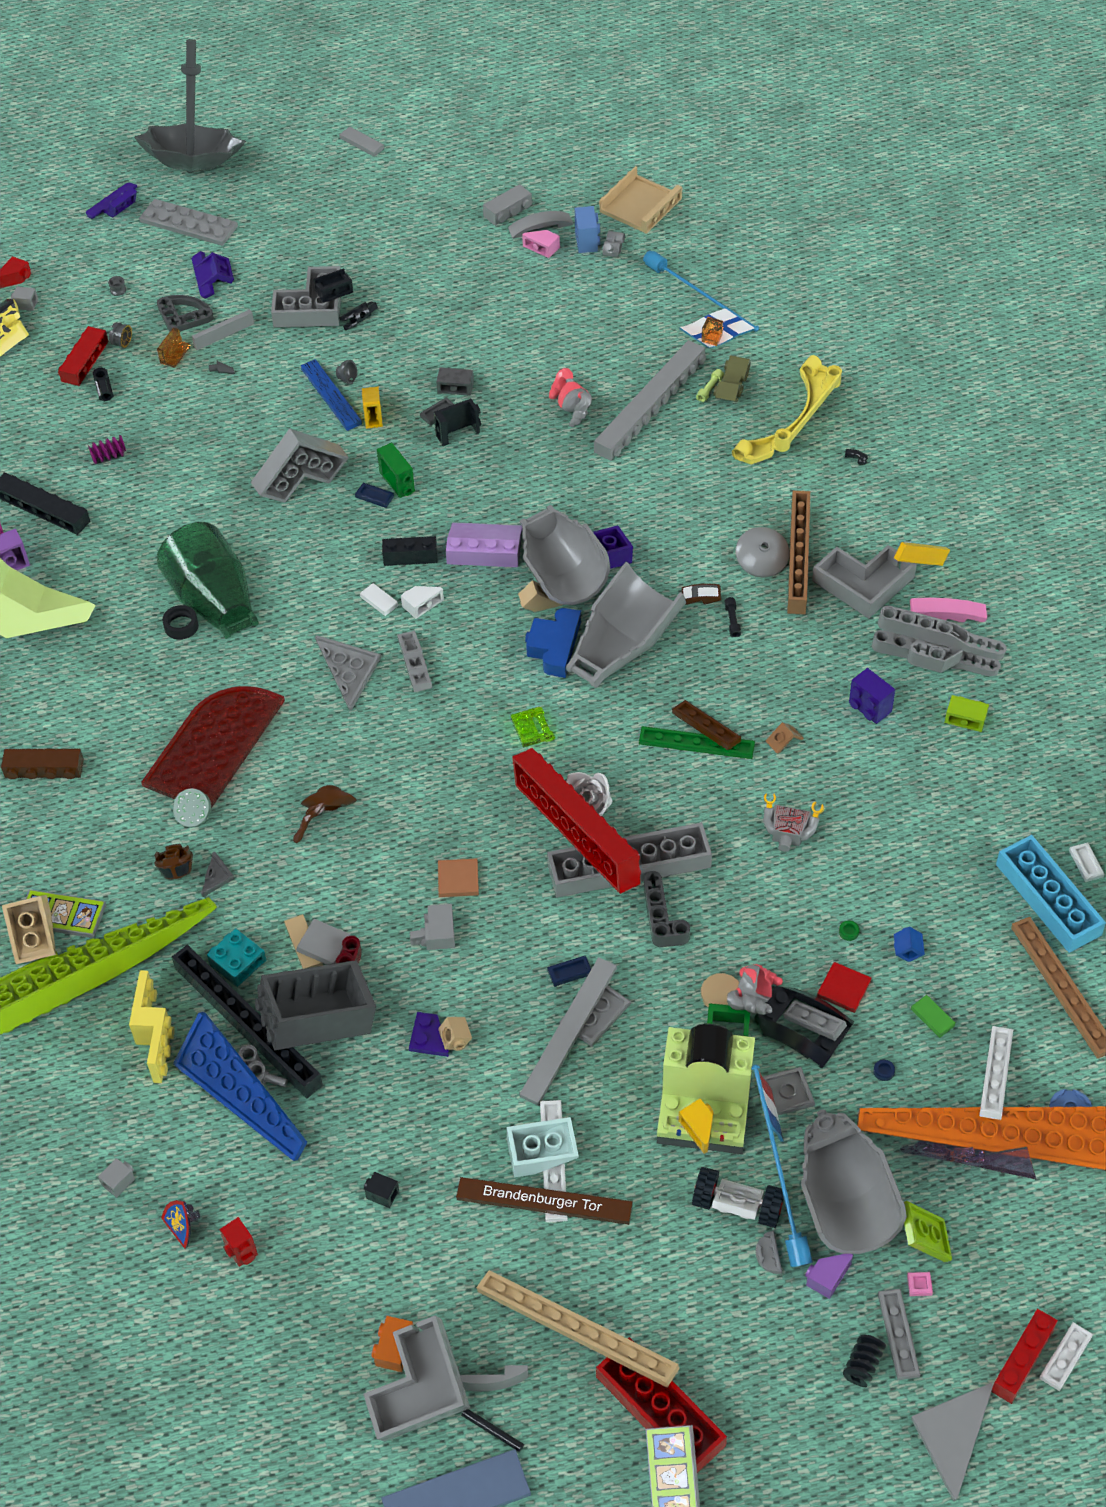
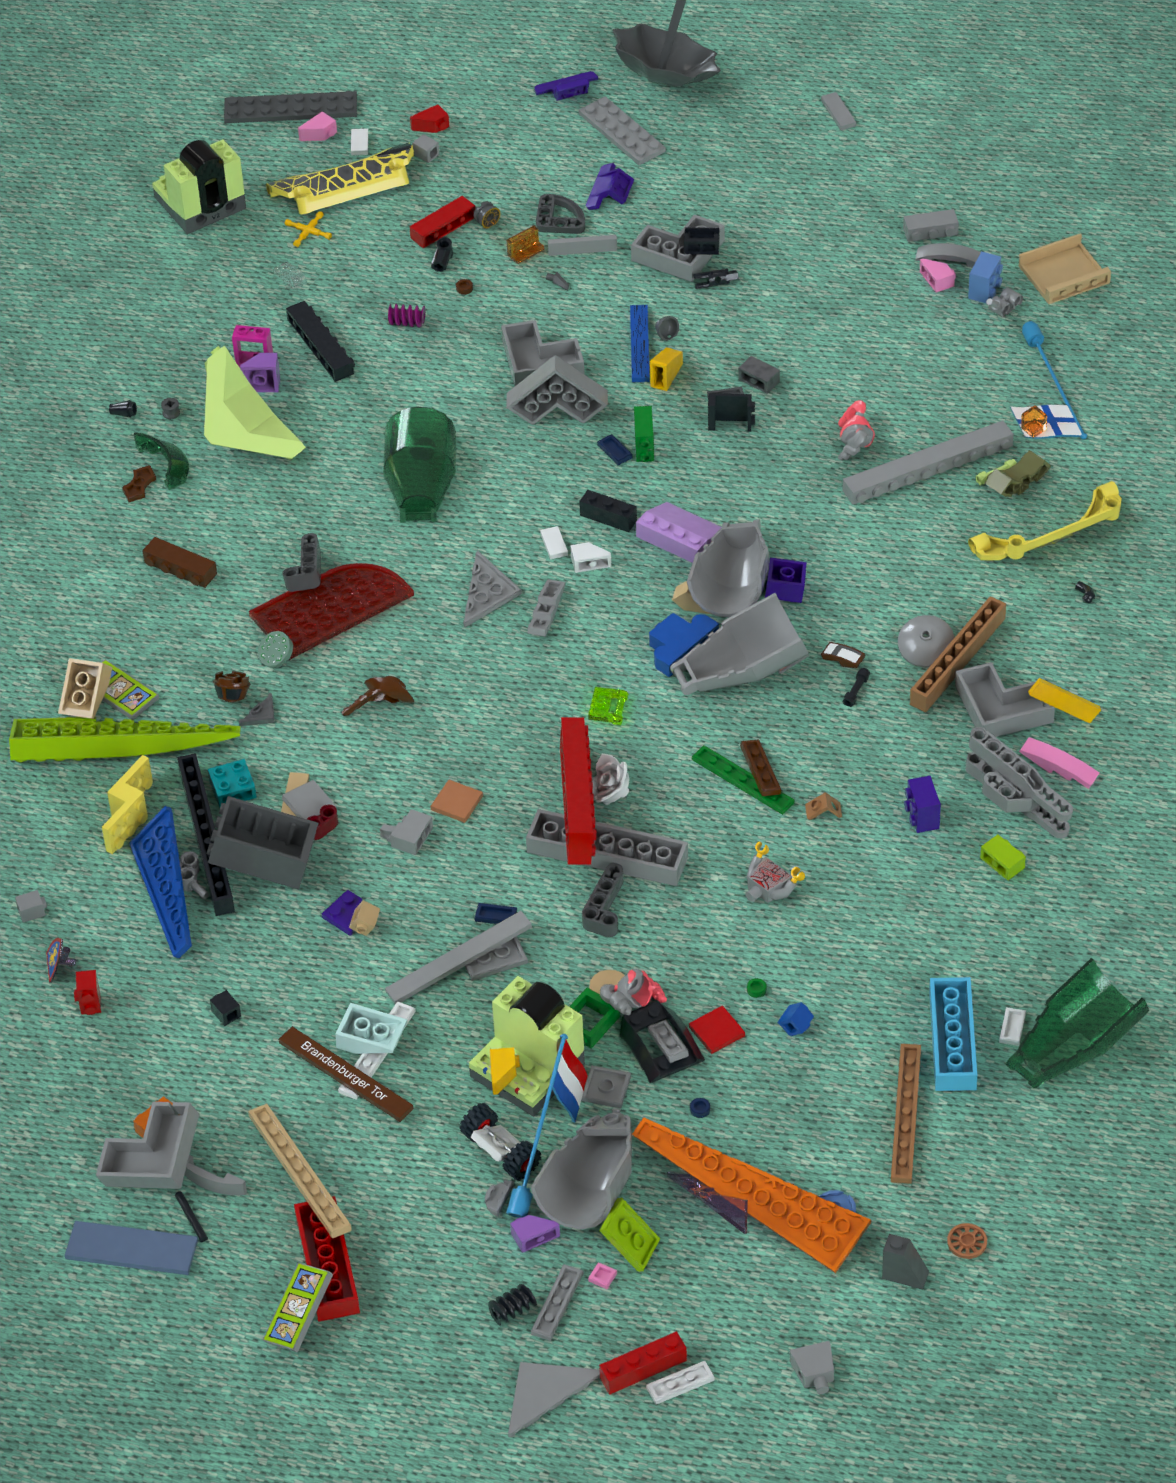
camera: 30 degrees right, 5 degrees down
(117, 286) = (515, 167): dark grey wheel -> none
(140, 405) = (464, 286): none -> reddish brown tile
(177, 723) = (309, 572): none -> dark grey beam
(182, 632) = (370, 502): black tyre -> none
(247, 444) = (527, 353): none -> light grey piece
(933, 1016) = (775, 1085): bright green tile -> none
(996, 1073) = (786, 1147): white tile -> none

